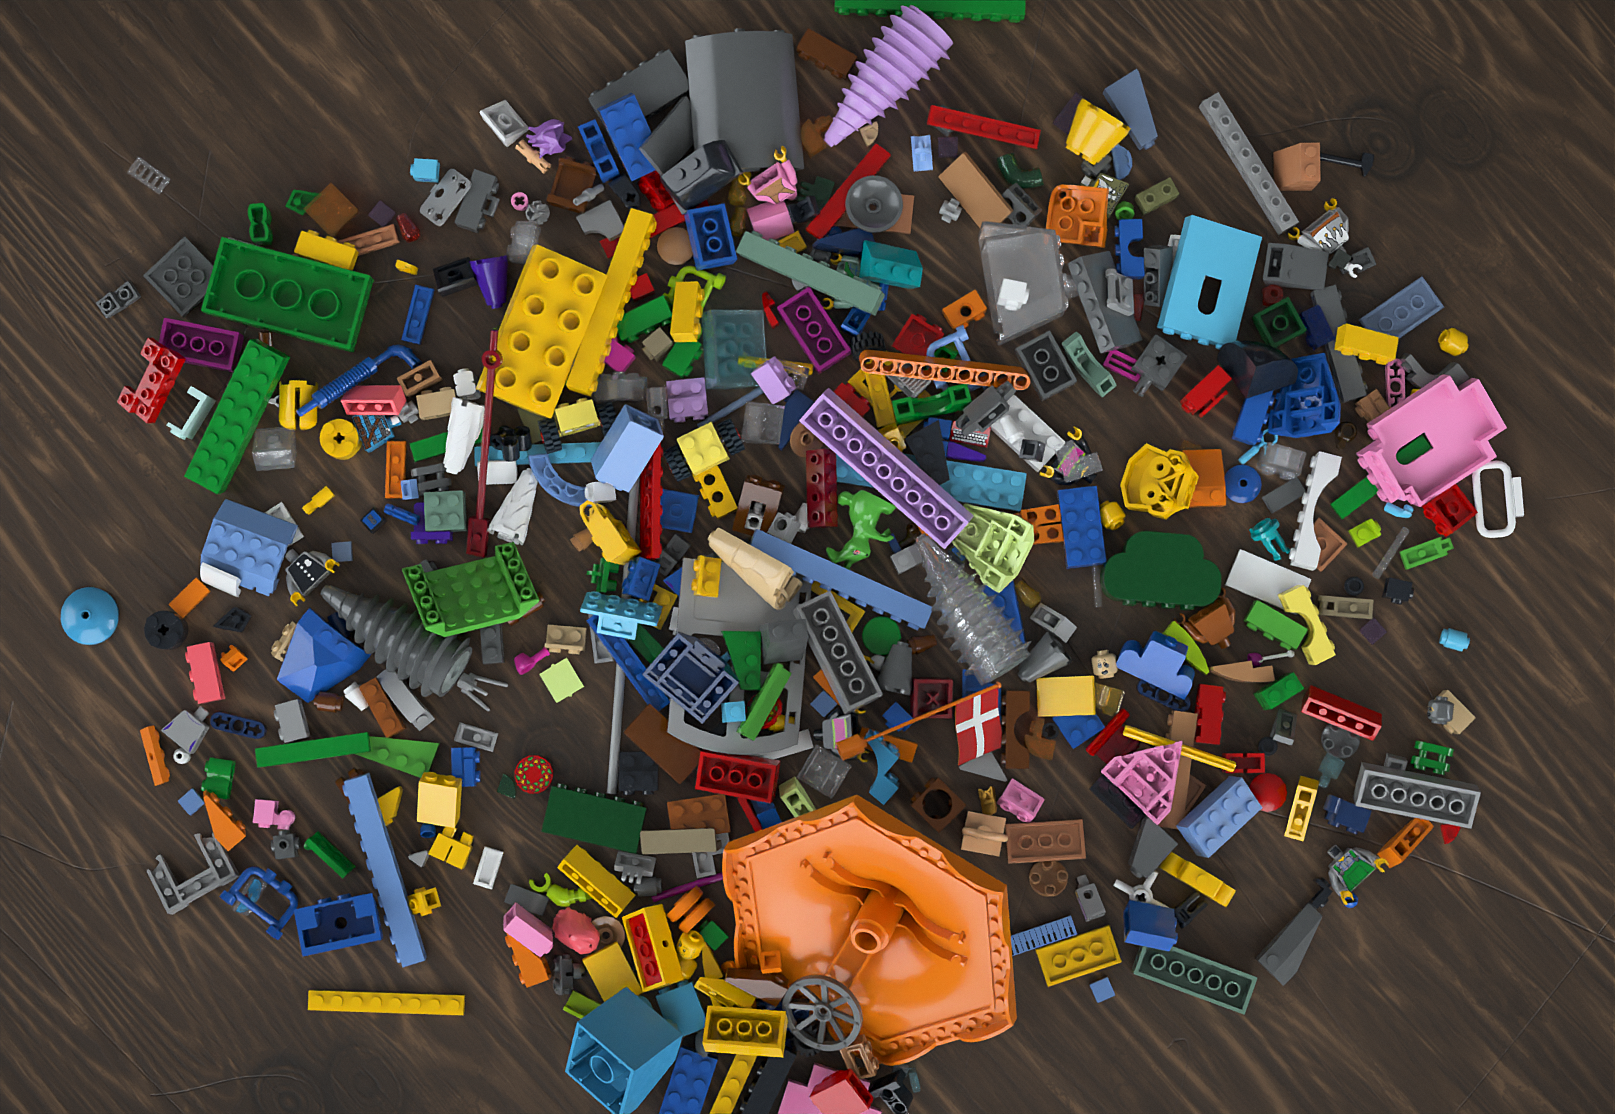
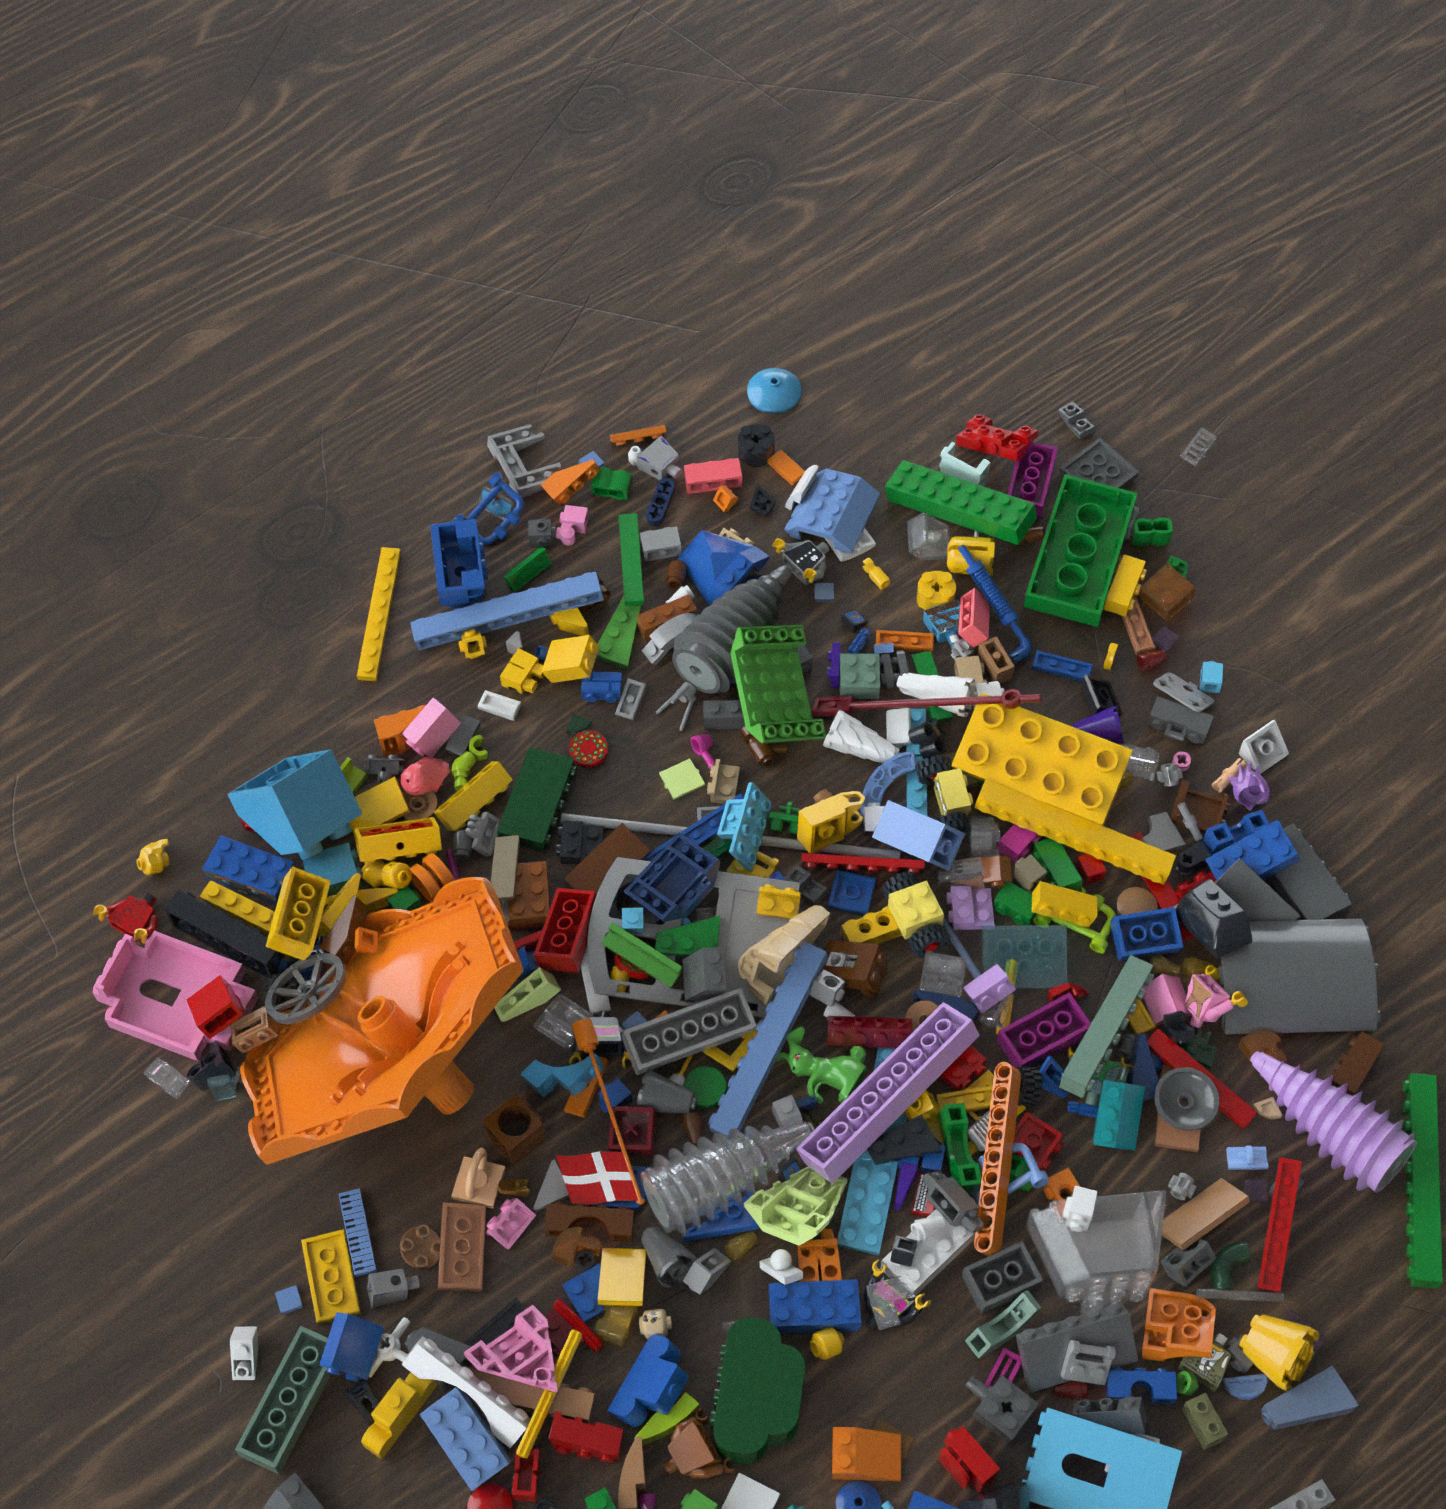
camera: 90 degrees right, 25 degrees down
(640, 578) = (780, 850): blue bracket -> none
(656, 374) = (996, 870): none -> dark orange brick
(1045, 164) = (1240, 1295): none -> clear bar
(1050, 557) = (780, 1267): none -> white tile
(1144, 478) = (869, 1402): yellow brick -> none
(1153, 1021) = (244, 1353): none -> white slope
(1168, 852) = (430, 1362): none -> white arch
(1174, 706) = (601, 1403): dark blue beam -> none

